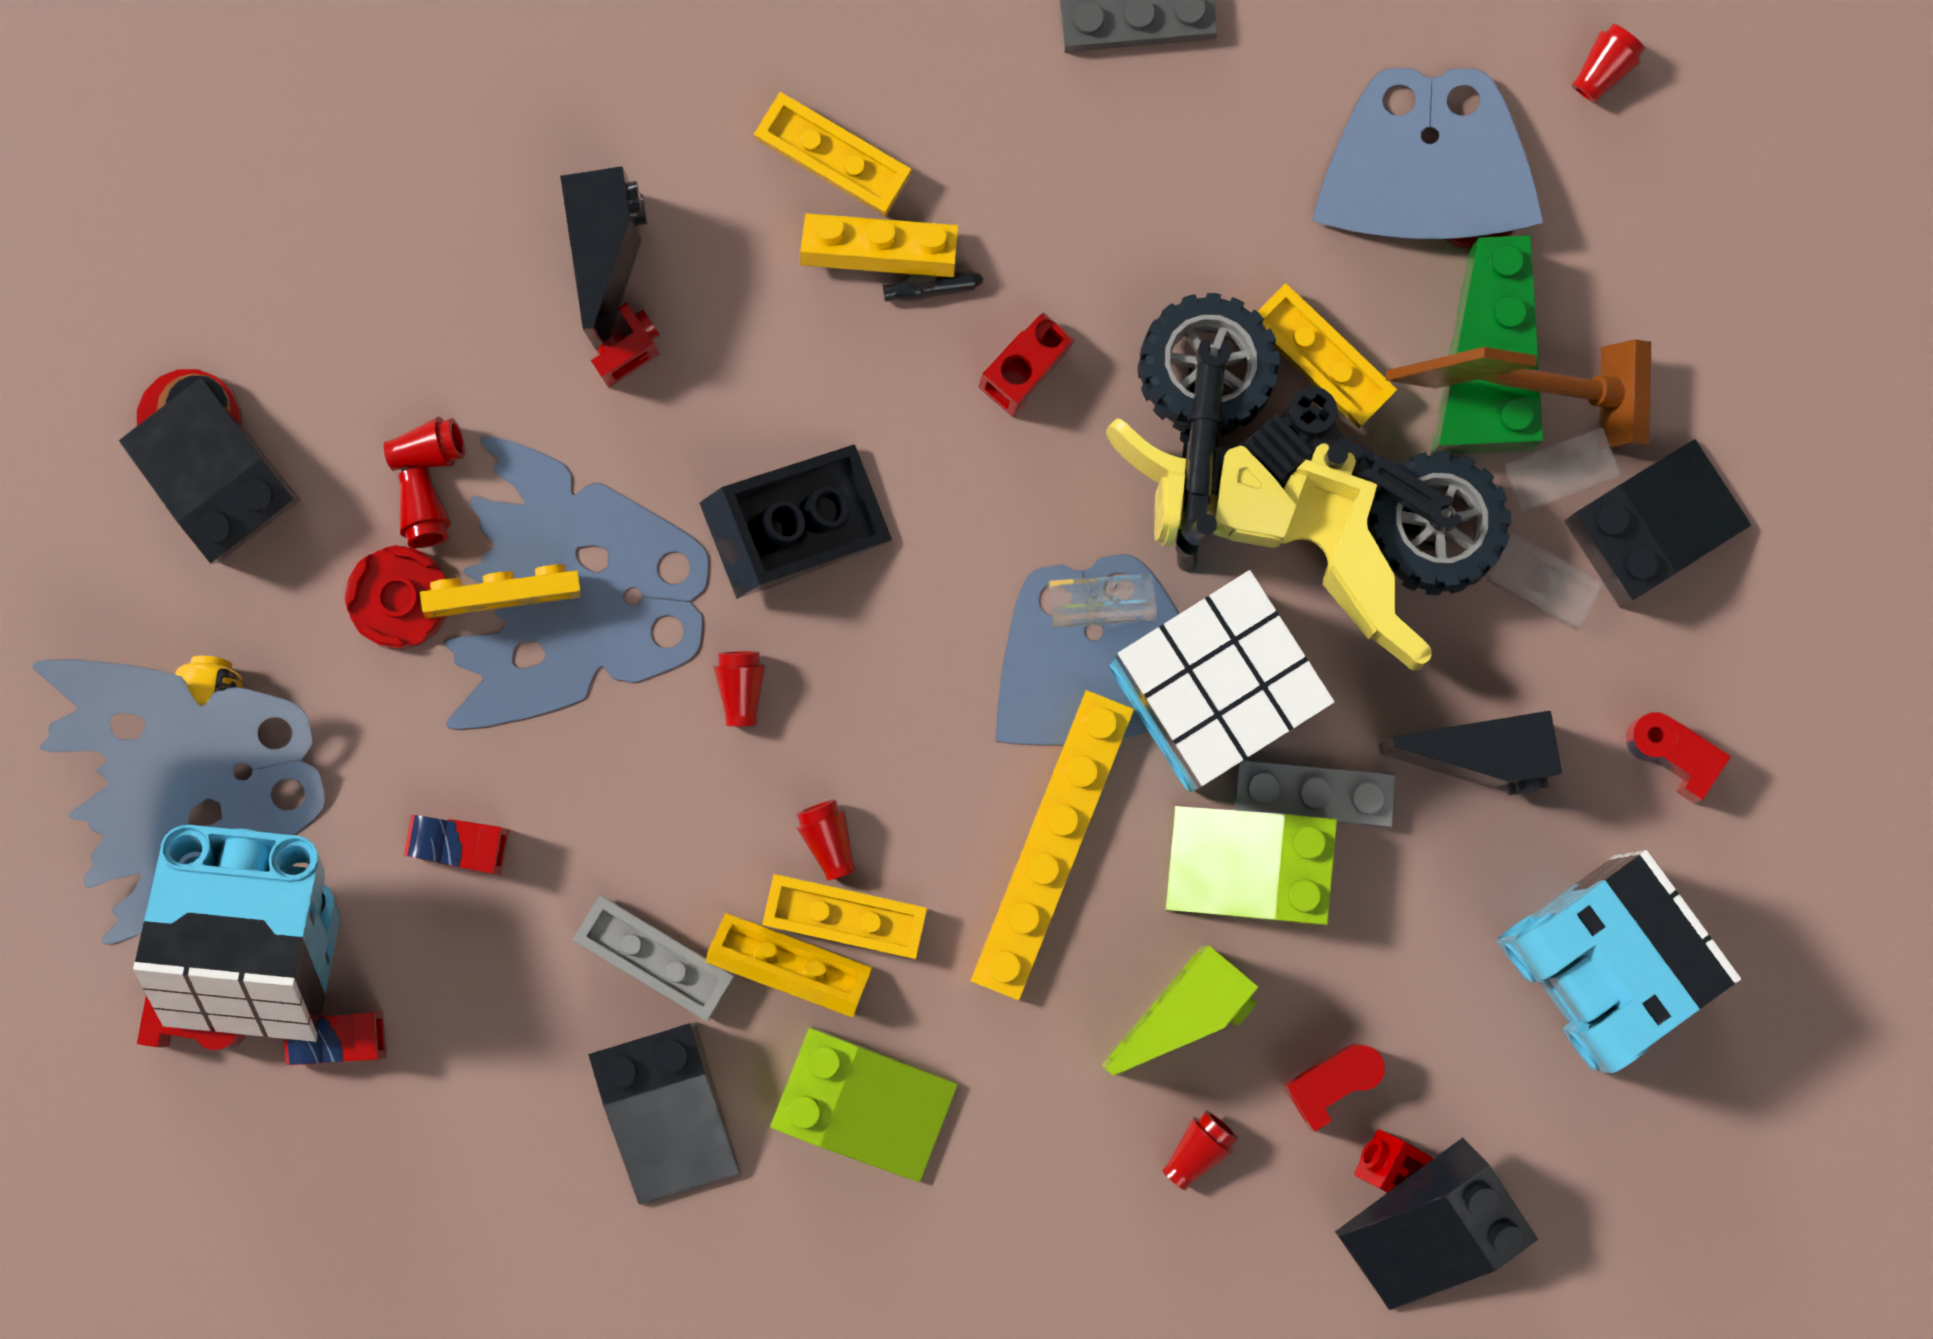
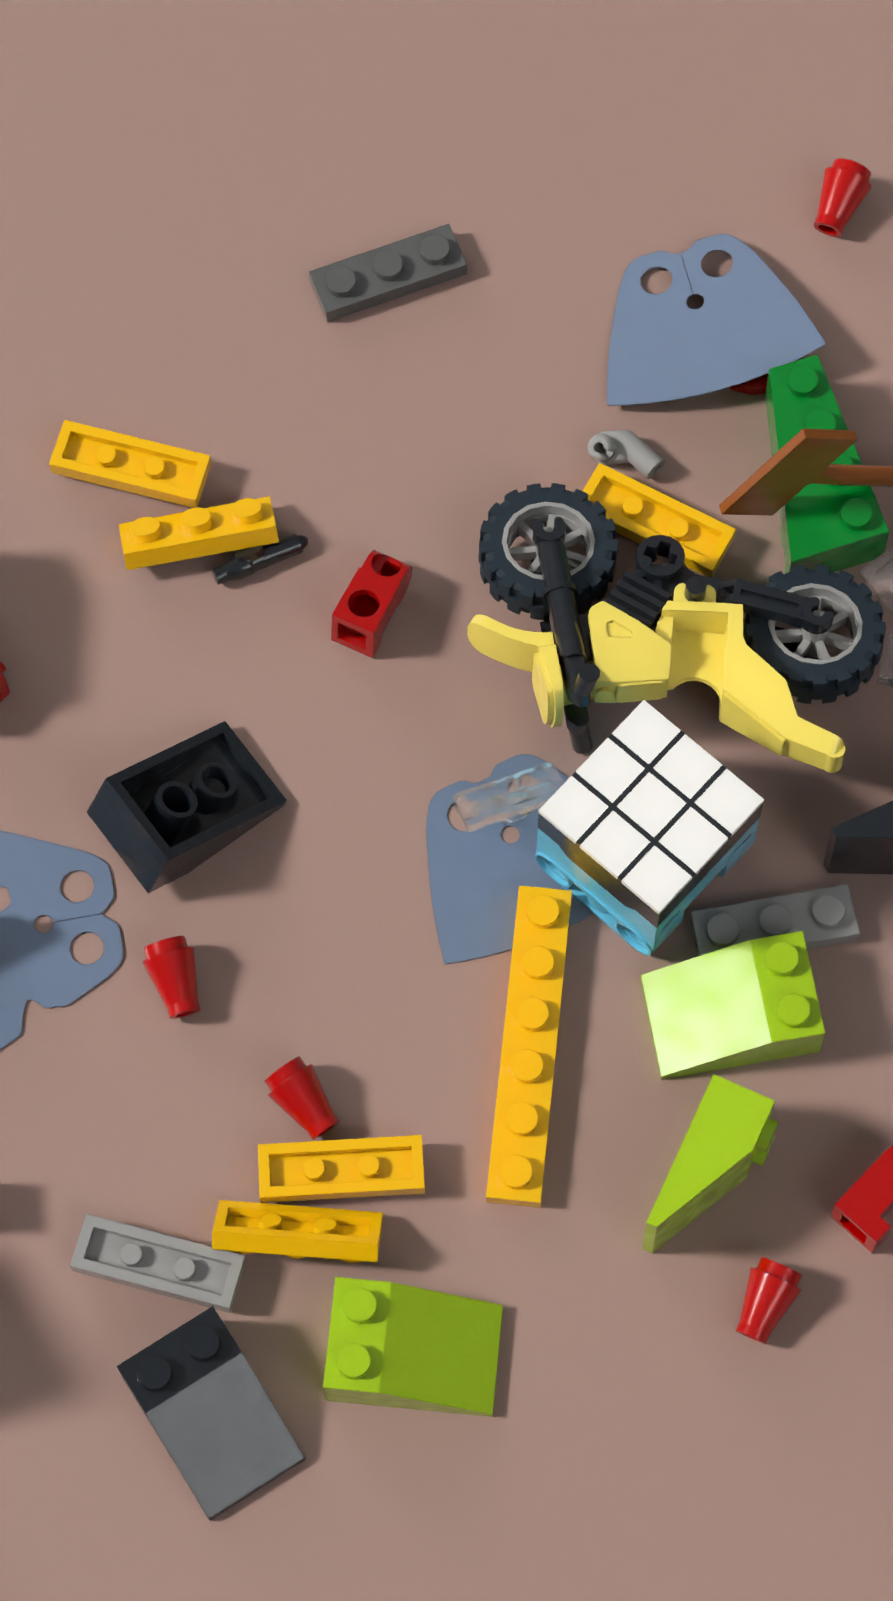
camera: 15 degrees left, 15 degrees down
(1314, 270) = (624, 448): none -> light grey arm

